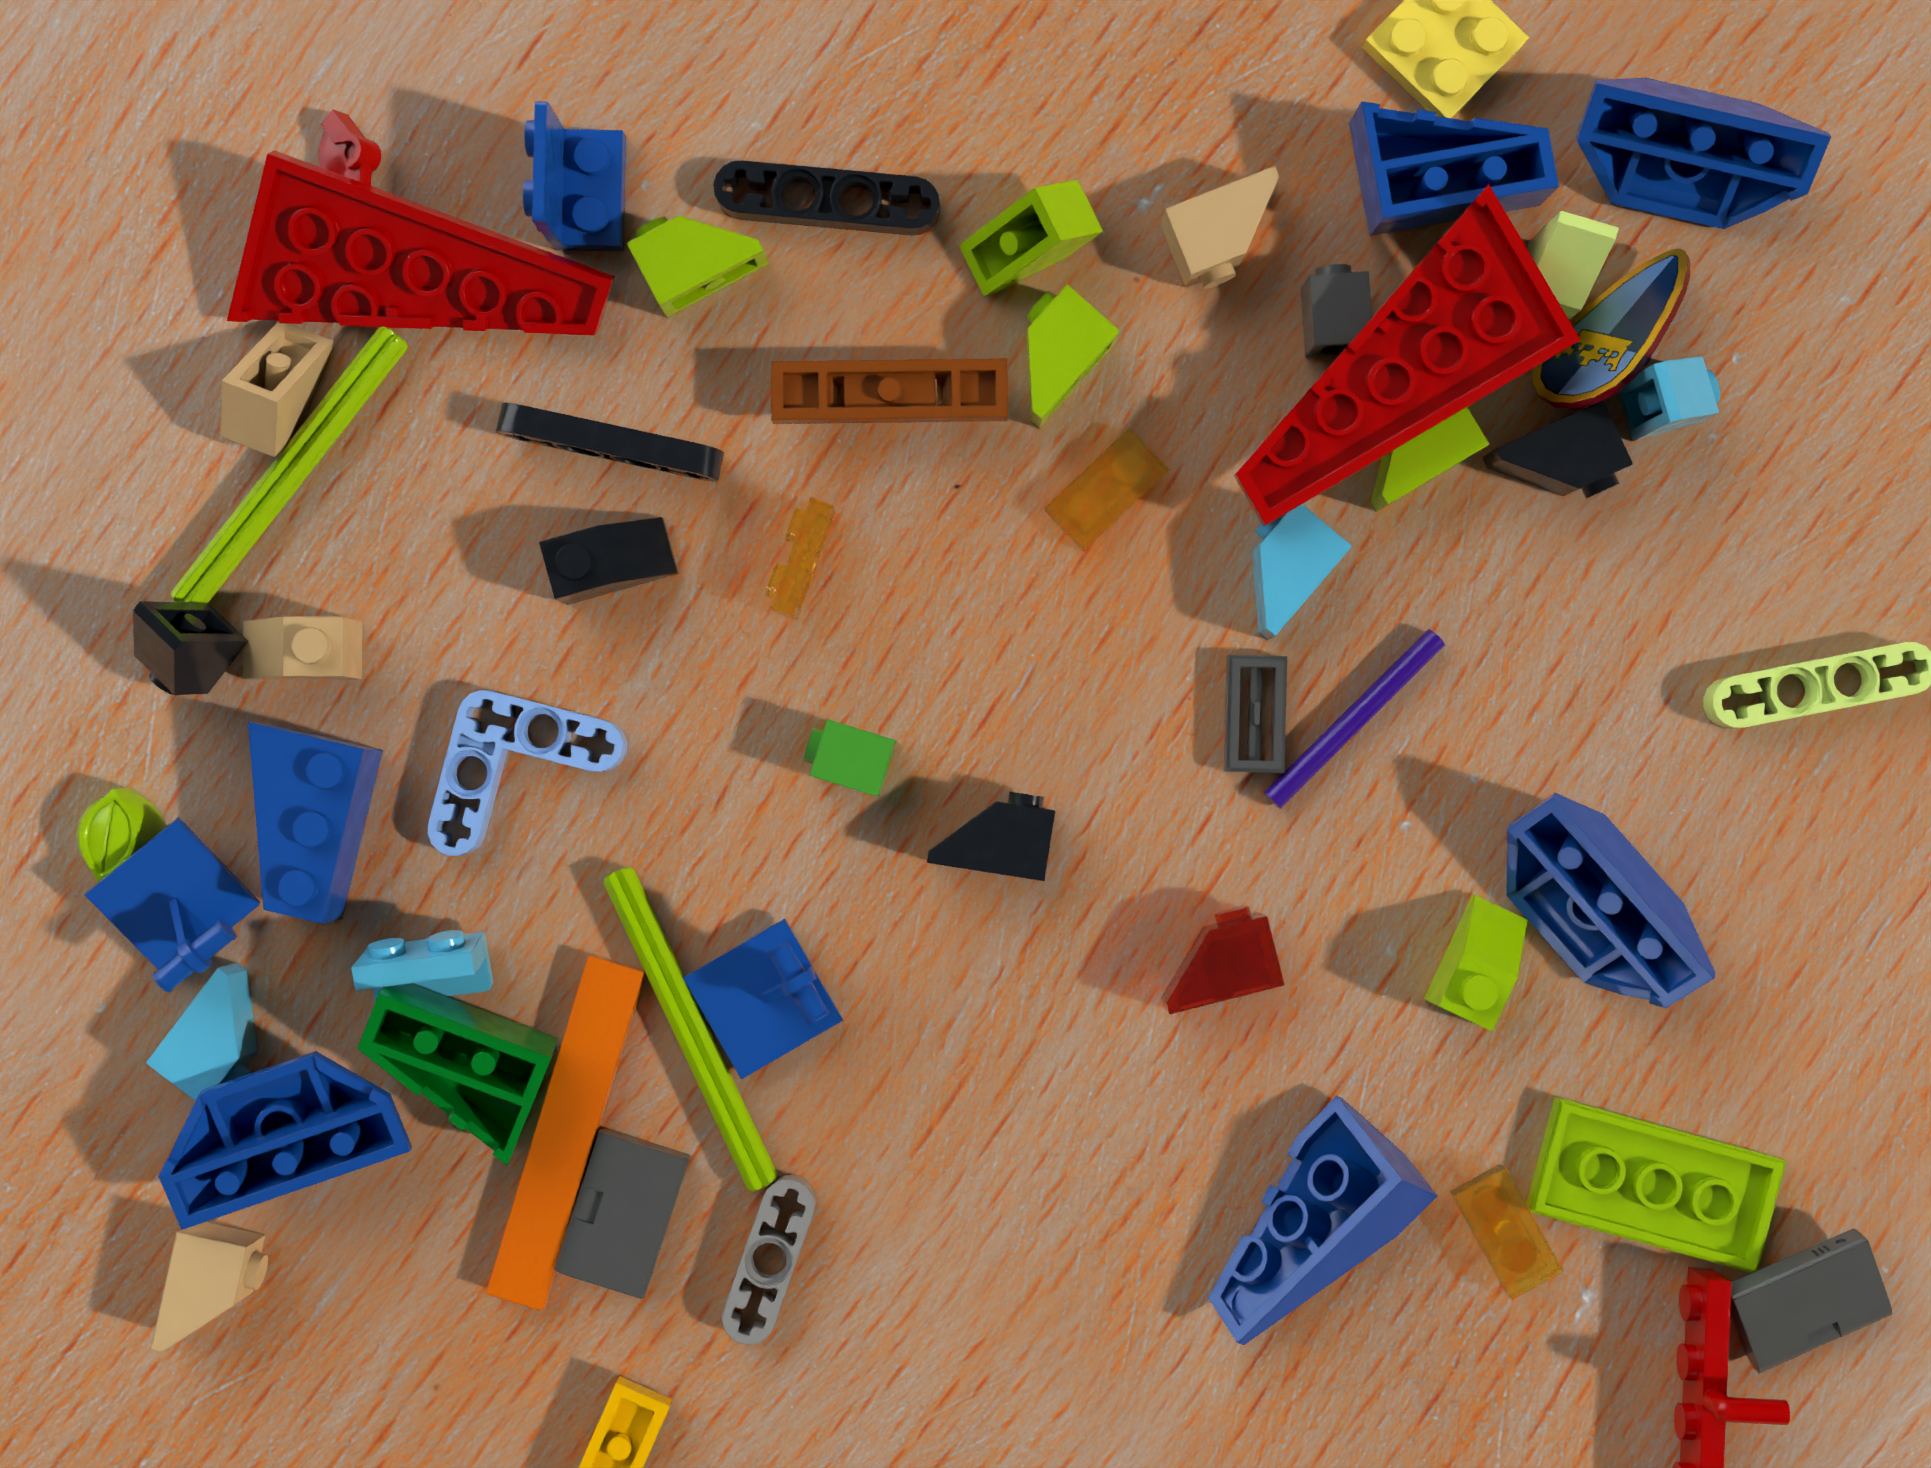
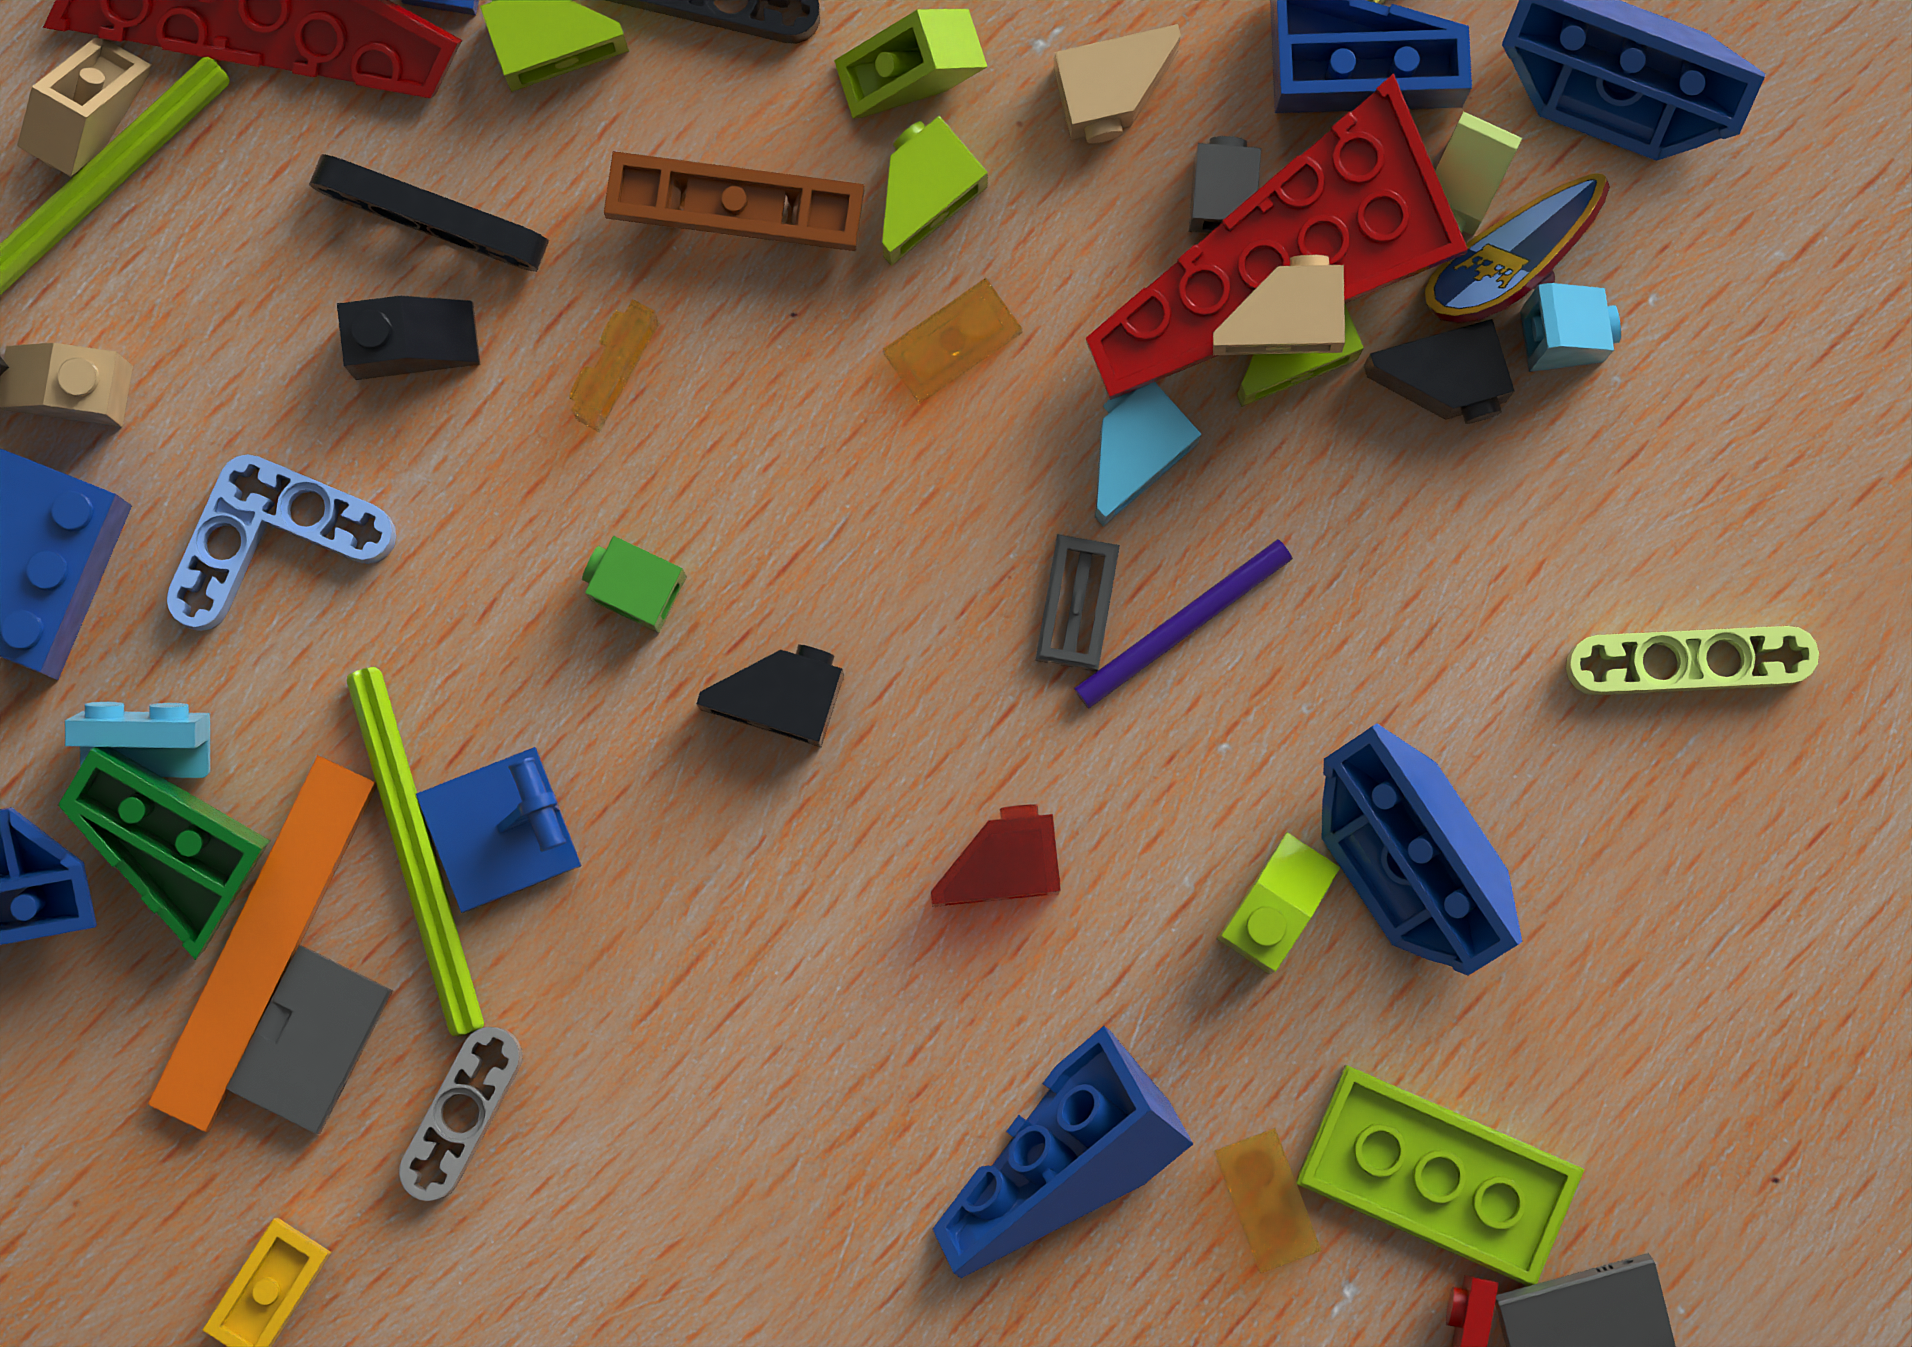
camera: 10 degrees right, 5 degrees down
(1429, 423) = (1289, 312): none -> tan slope

